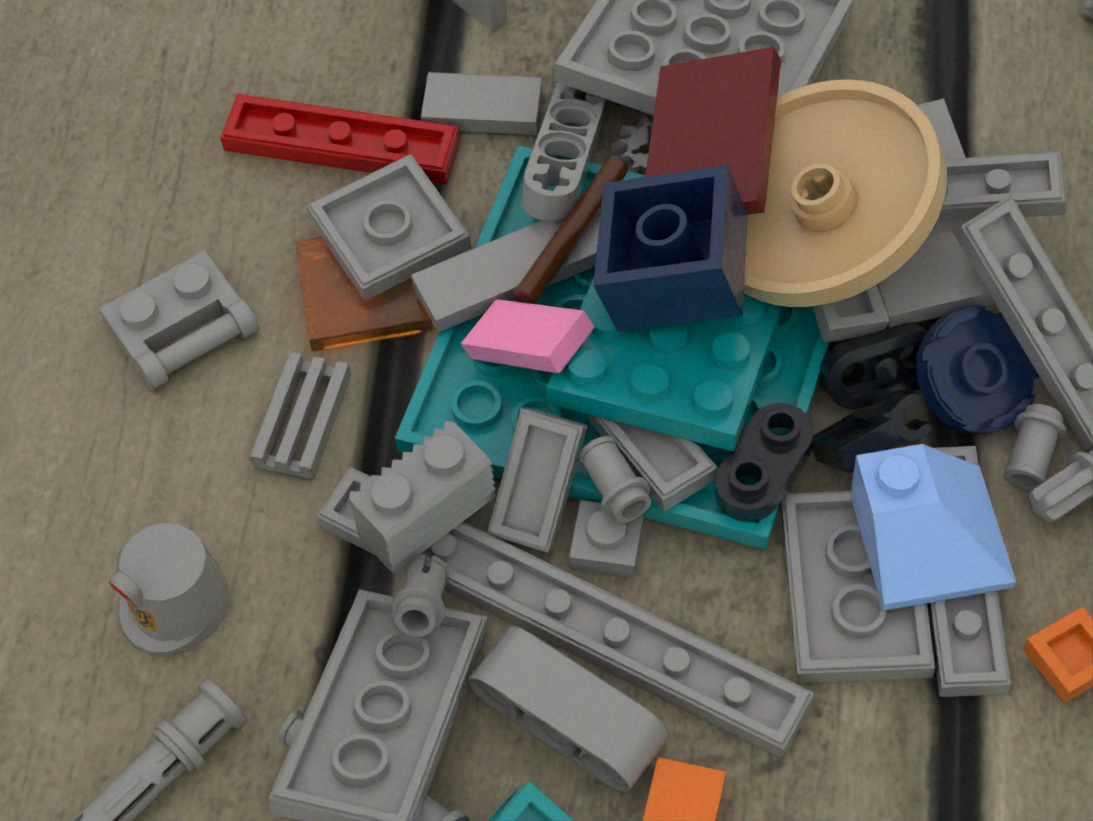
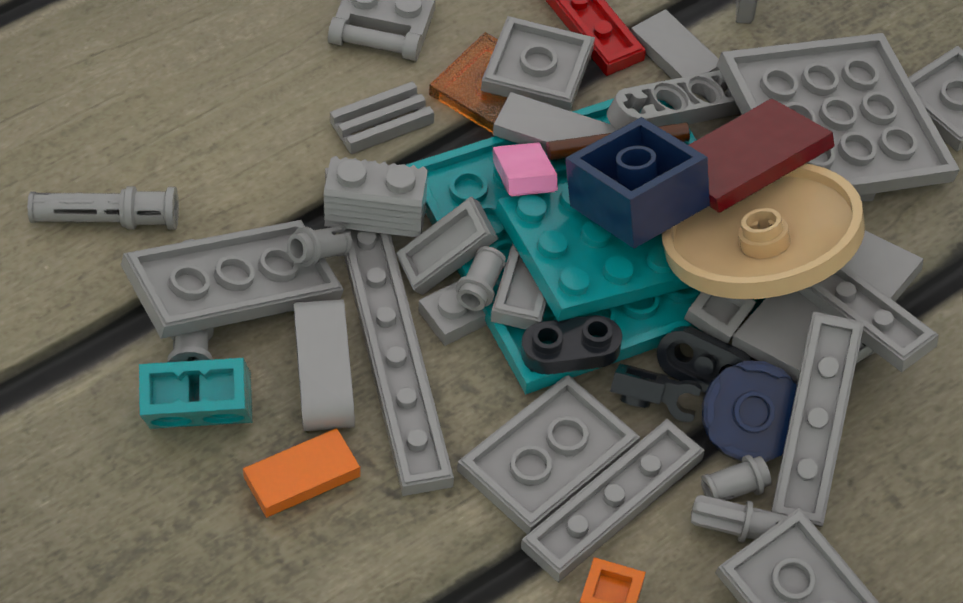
camera: 40 degrees right, 5 degrees down
(169, 590) = (214, 133): light grey hat -> none
(927, 527) = (614, 453): light blue slope -> none

